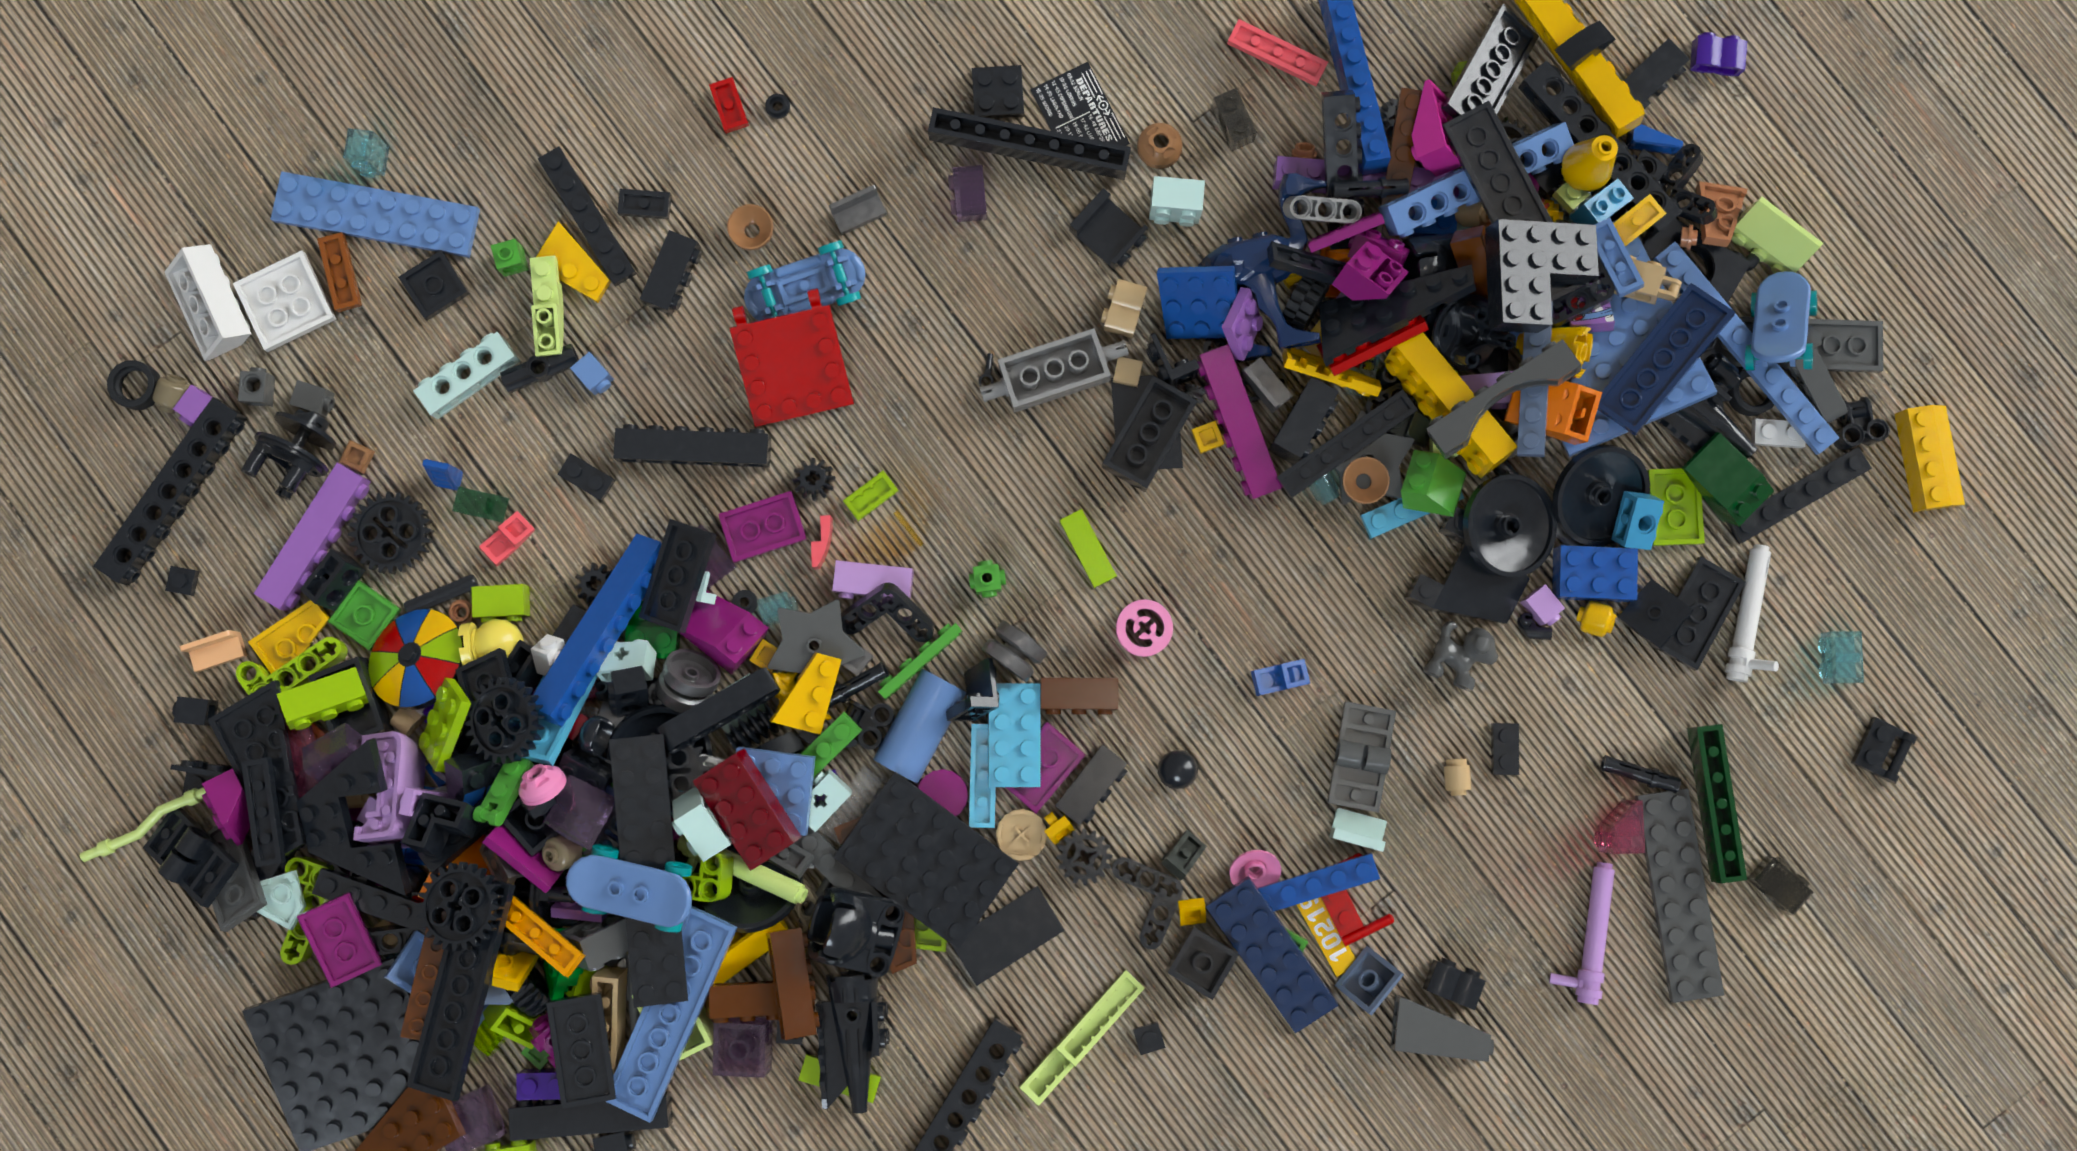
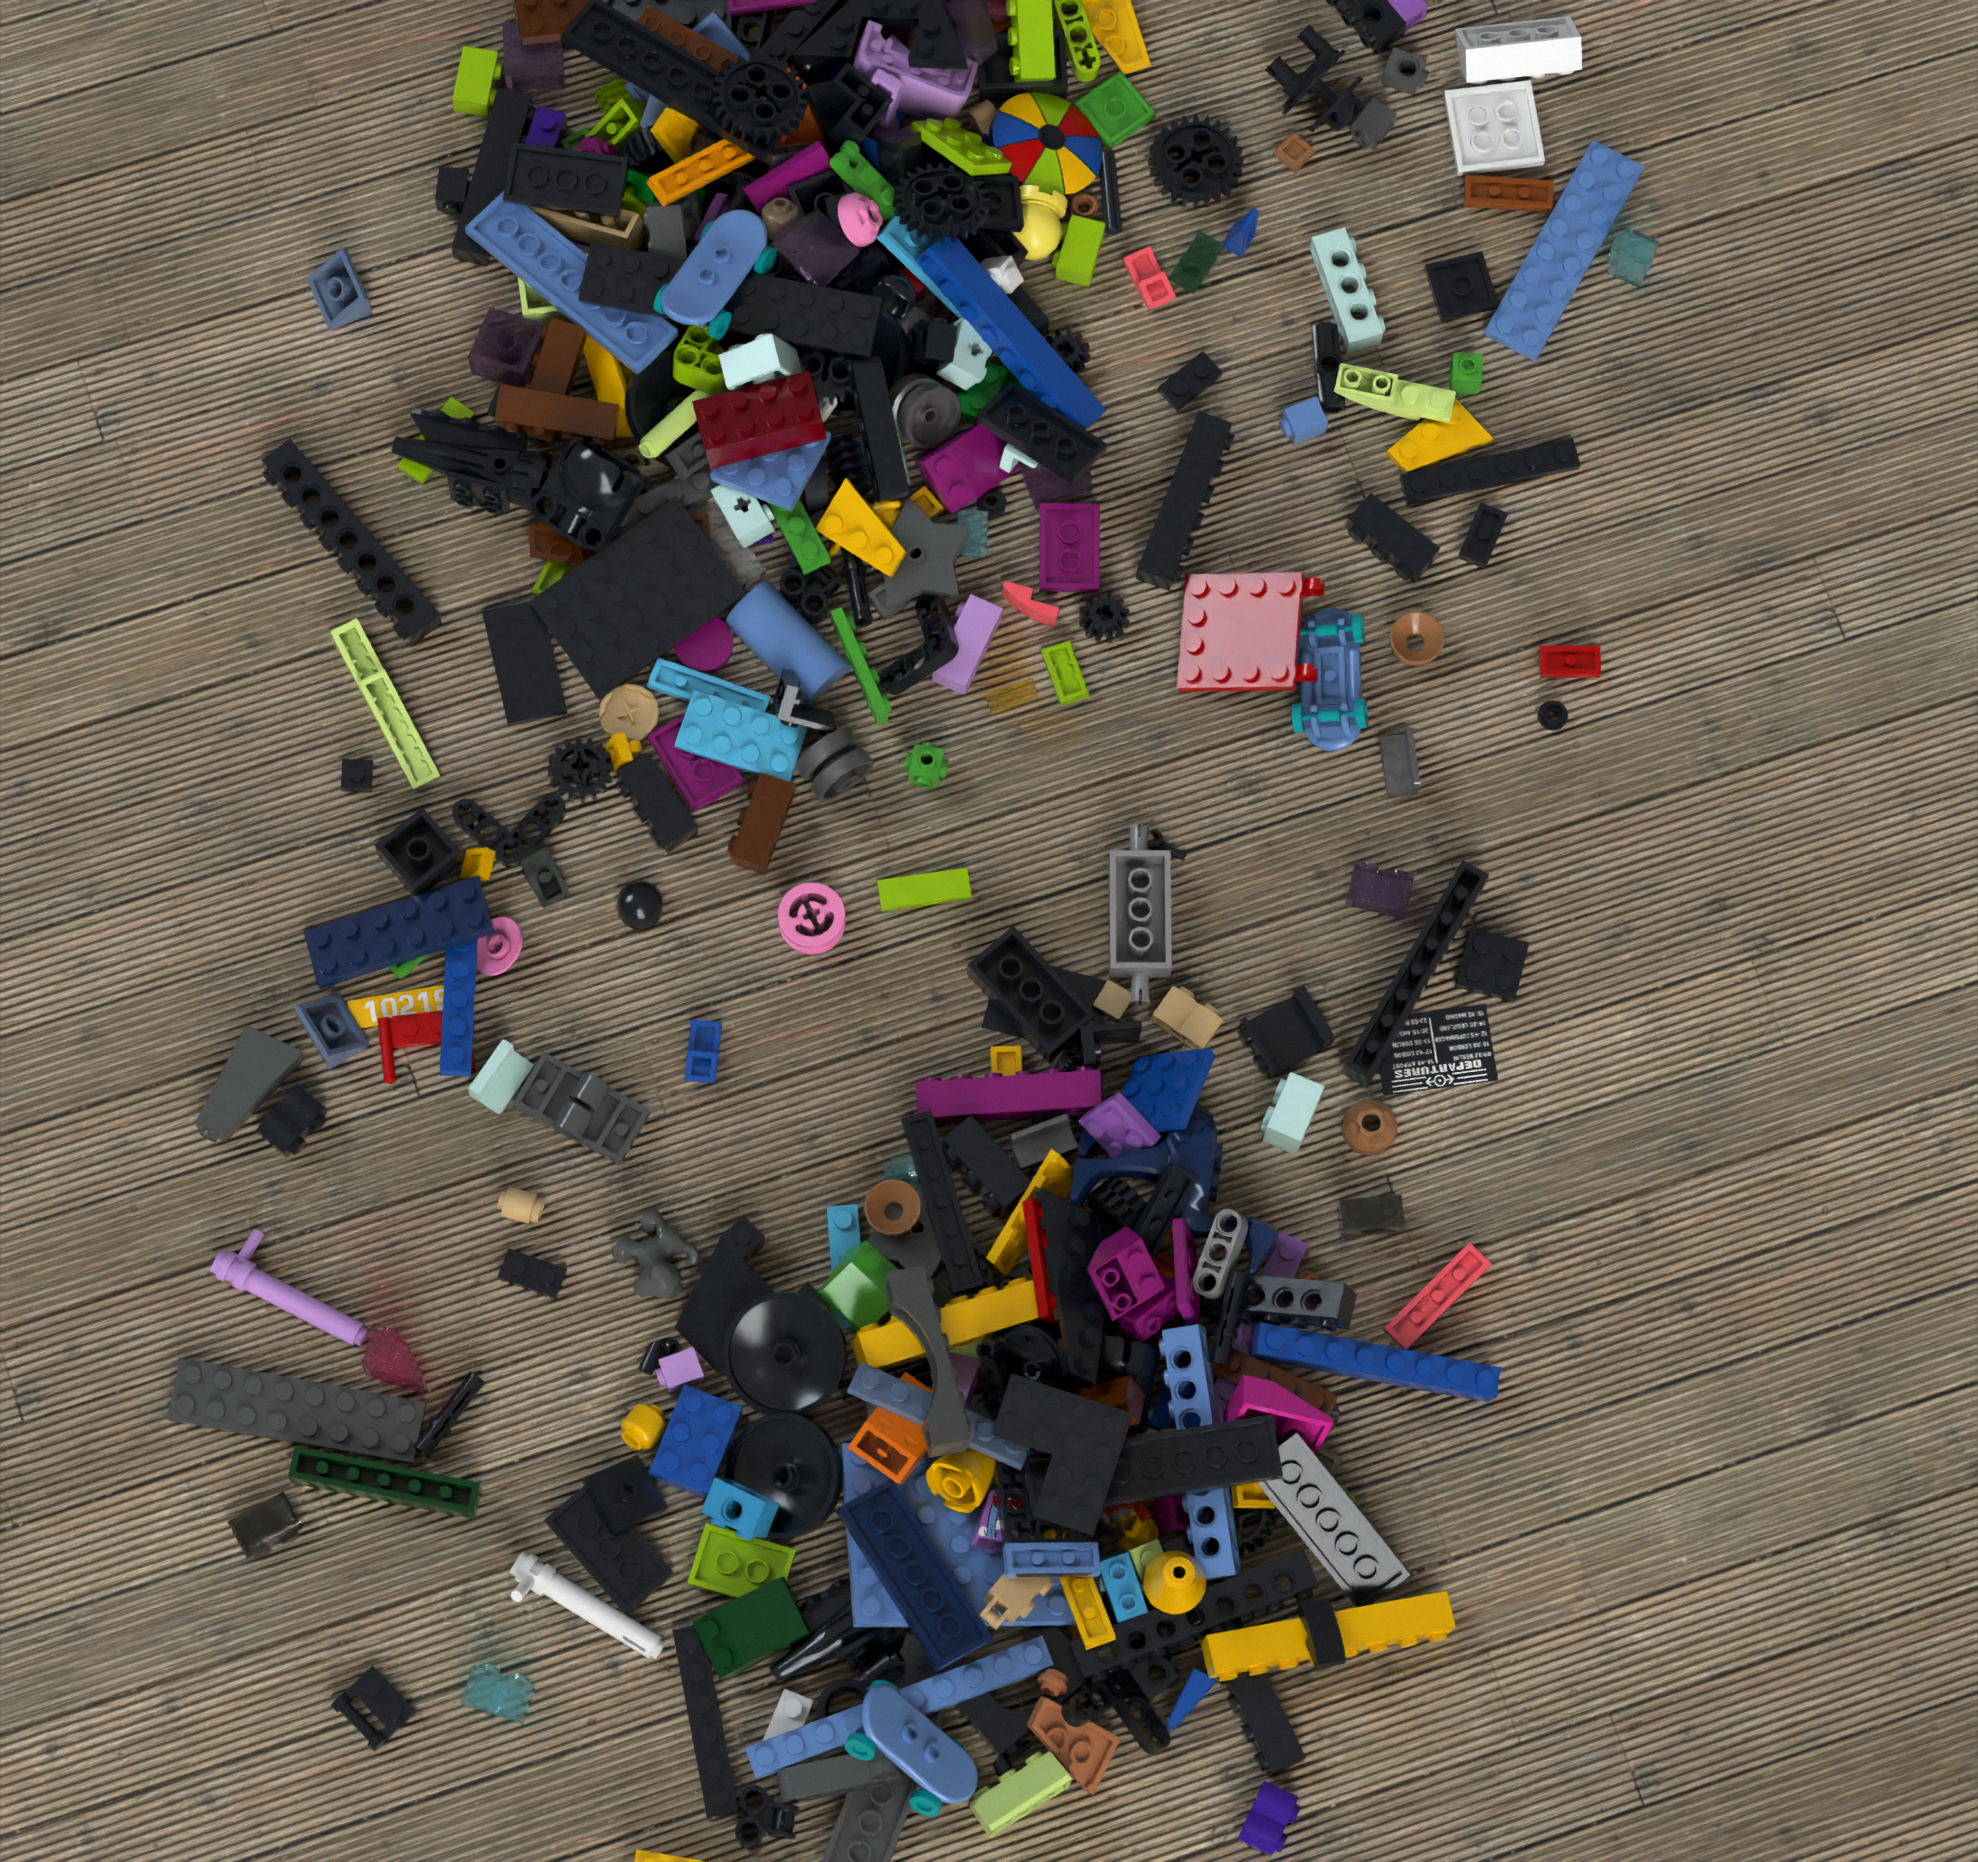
camera: 105 degrees right, 10 degrees down
(312, 537) = (1217, 81): medium lavender brick -> none
(332, 580) = (1162, 86): black brick -> none

